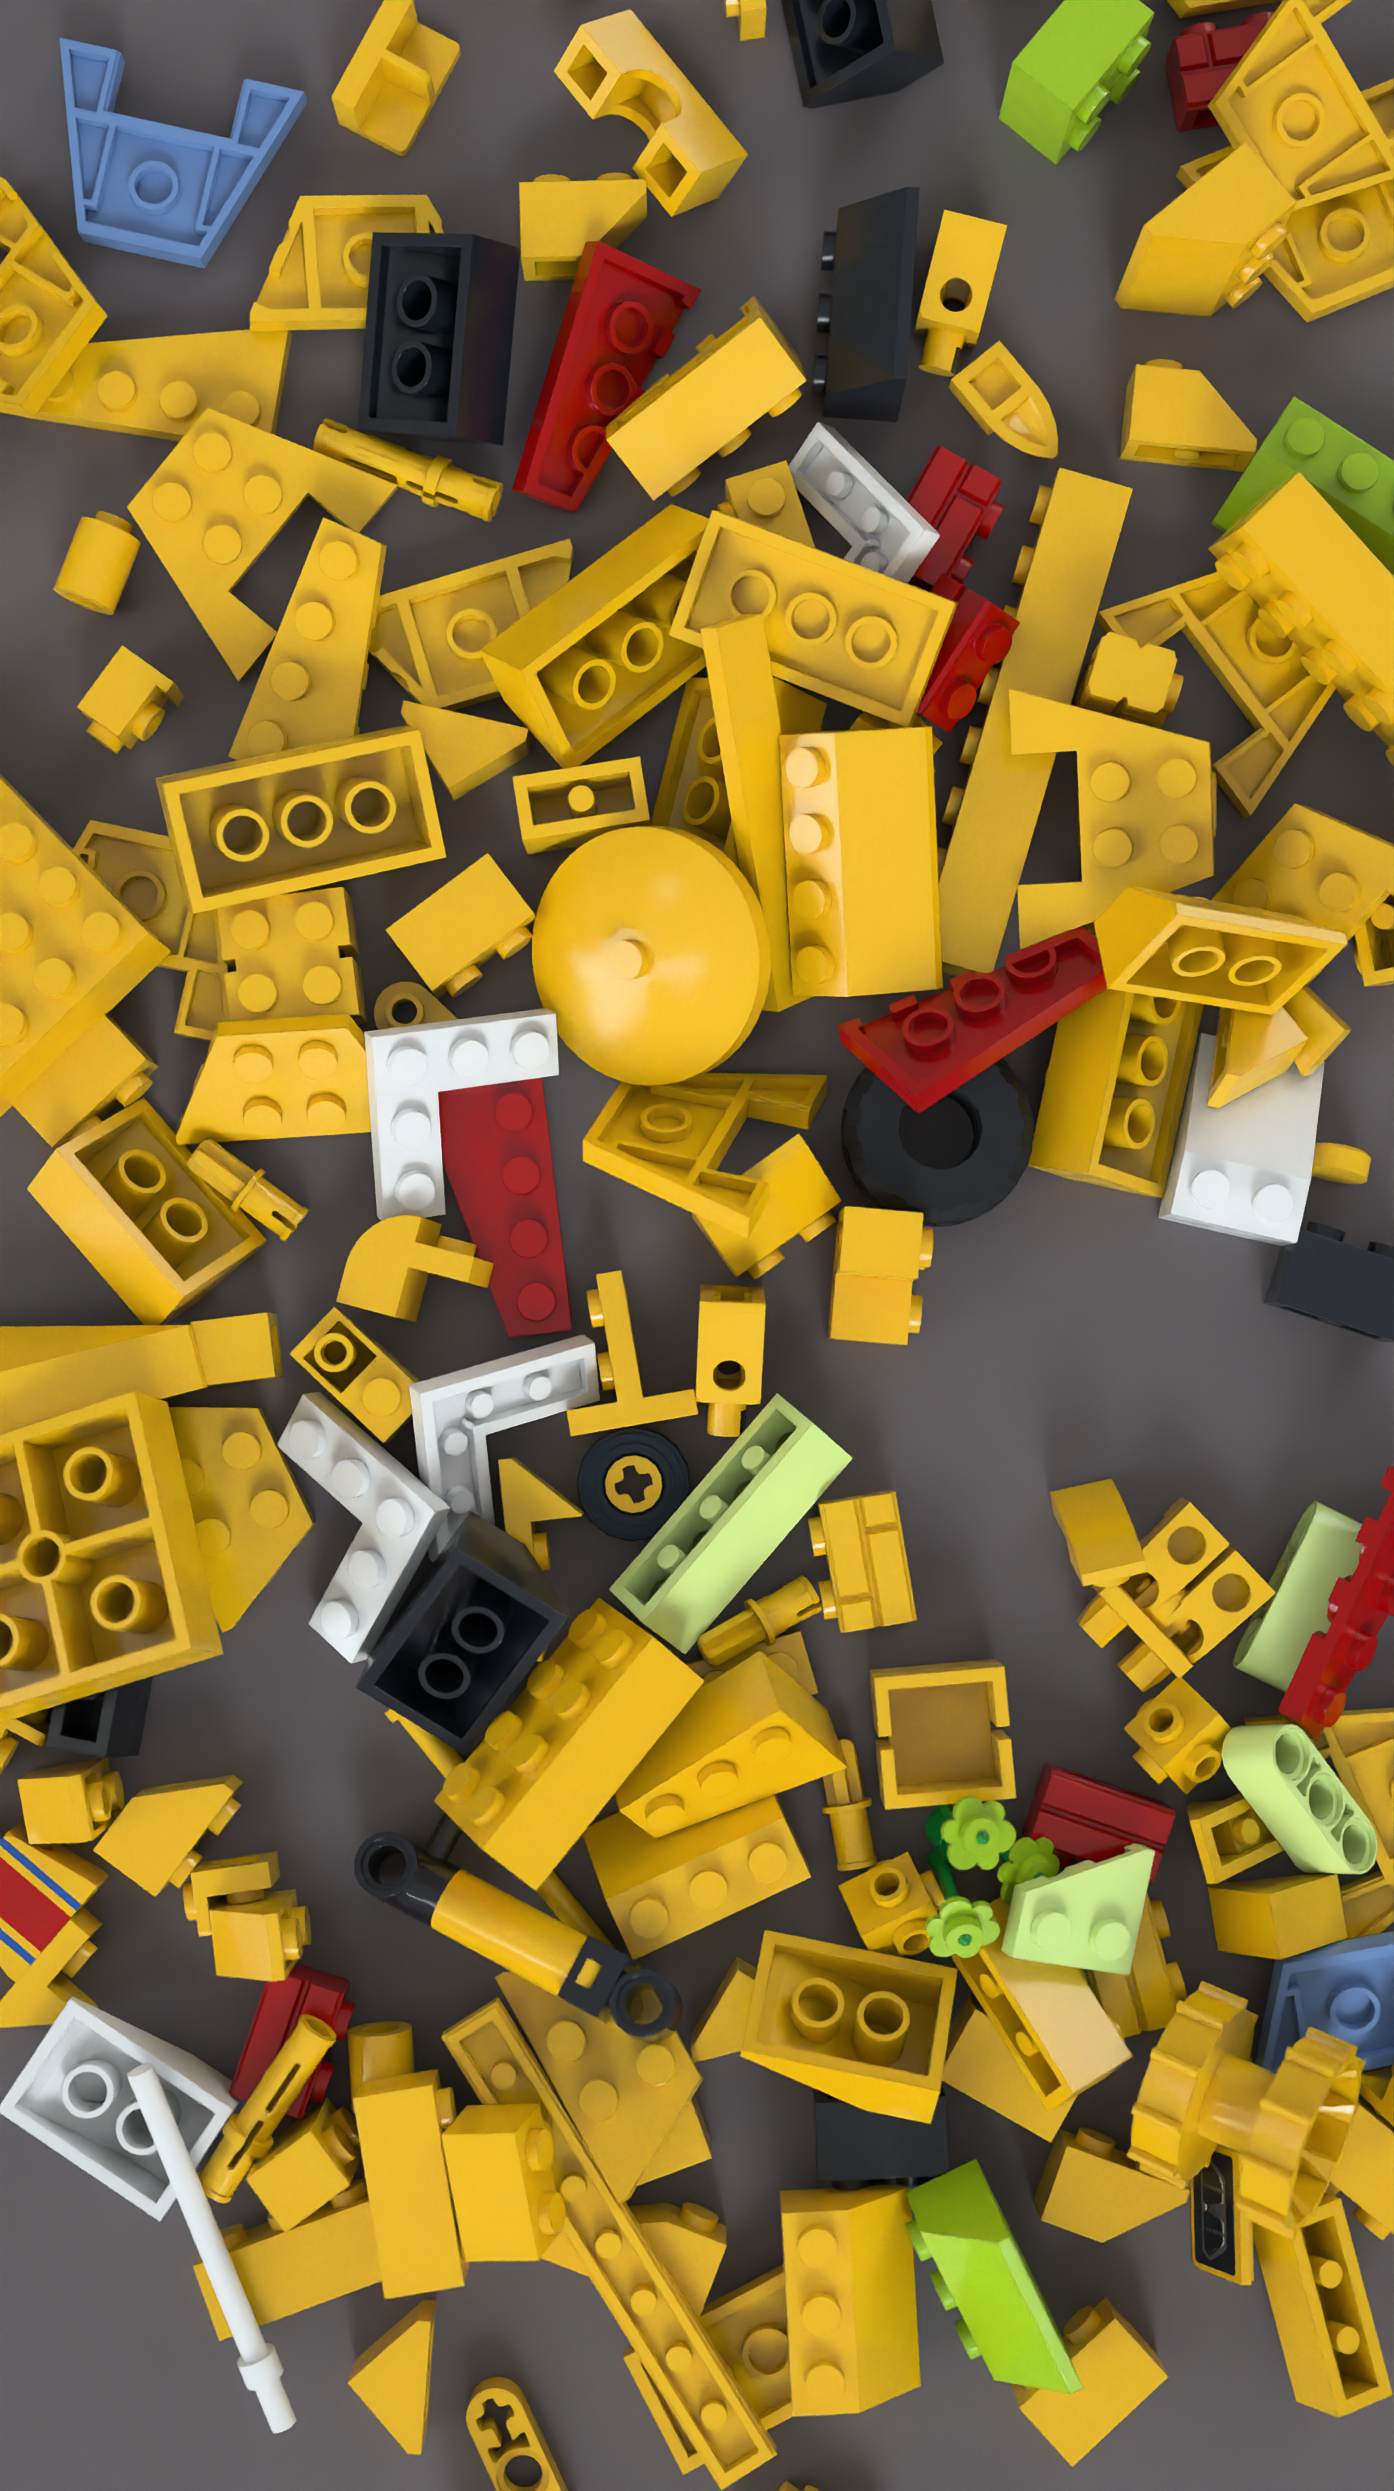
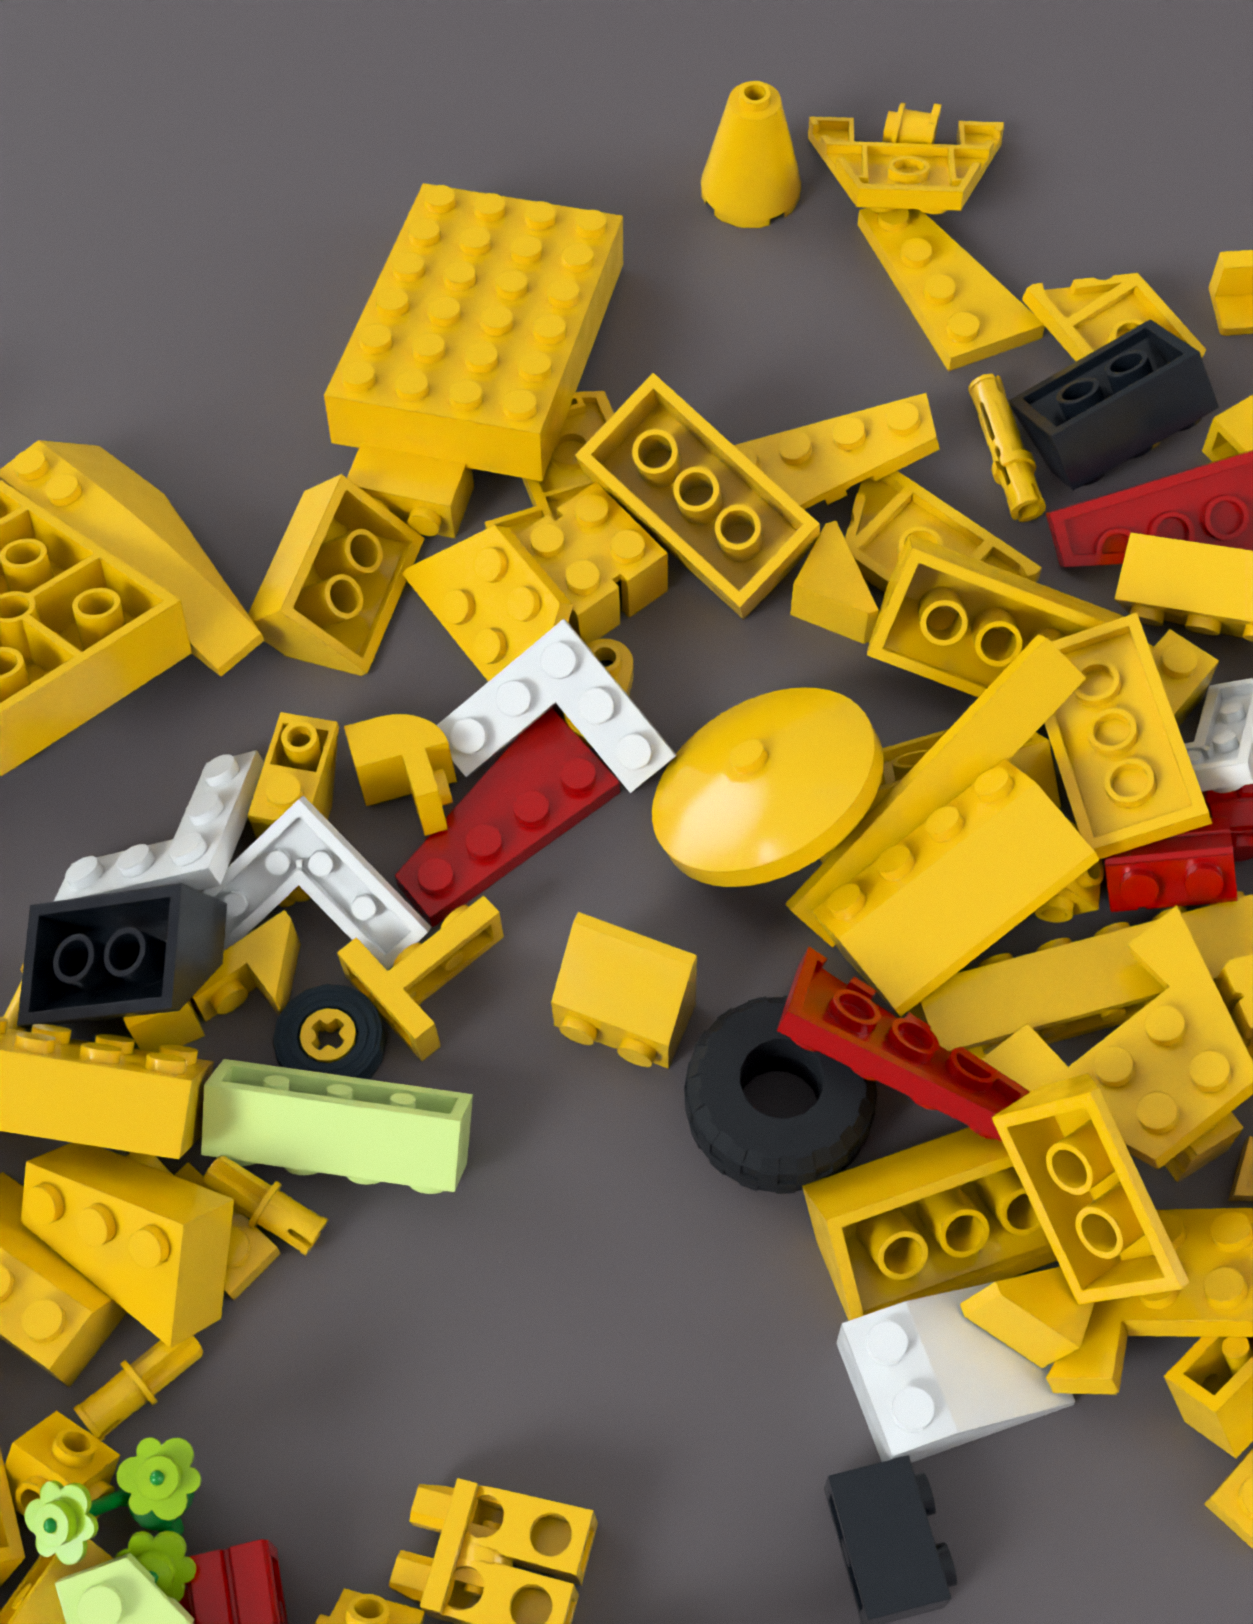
camera: 65 degrees right, 25 degrees down
(98, 563) = (789, 303): yellow brick -> none
(127, 701) = (705, 368): yellow brick -> none
(161, 184) = (1078, 209): medium blue wing -> none
(224, 503) = (889, 349): yellow wing -> none
(239, 1348) = (263, 688): yellow brick -> none
(241, 1502) = (140, 757): yellow wing -> none
(247, 1188) = (397, 635): yellow axle -> none
(464, 928) = (696, 660): yellow brick -> none
(579, 803) = (841, 661): yellow brick -> none
(679, 1132) = (629, 879): yellow wing -> none
(732, 1330) = (484, 1036): yellow torso -> none
(864, 1561) = (369, 1260): yellow brick -> none
(874, 1275) = (628, 1115): yellow brick -> none
(942, 1733) = (249, 1420): yellow piece -> none
(1098, 1533) = (511, 1444): yellow slope -> none
(1340, 1163) = (993, 1466): yellow tile -> none

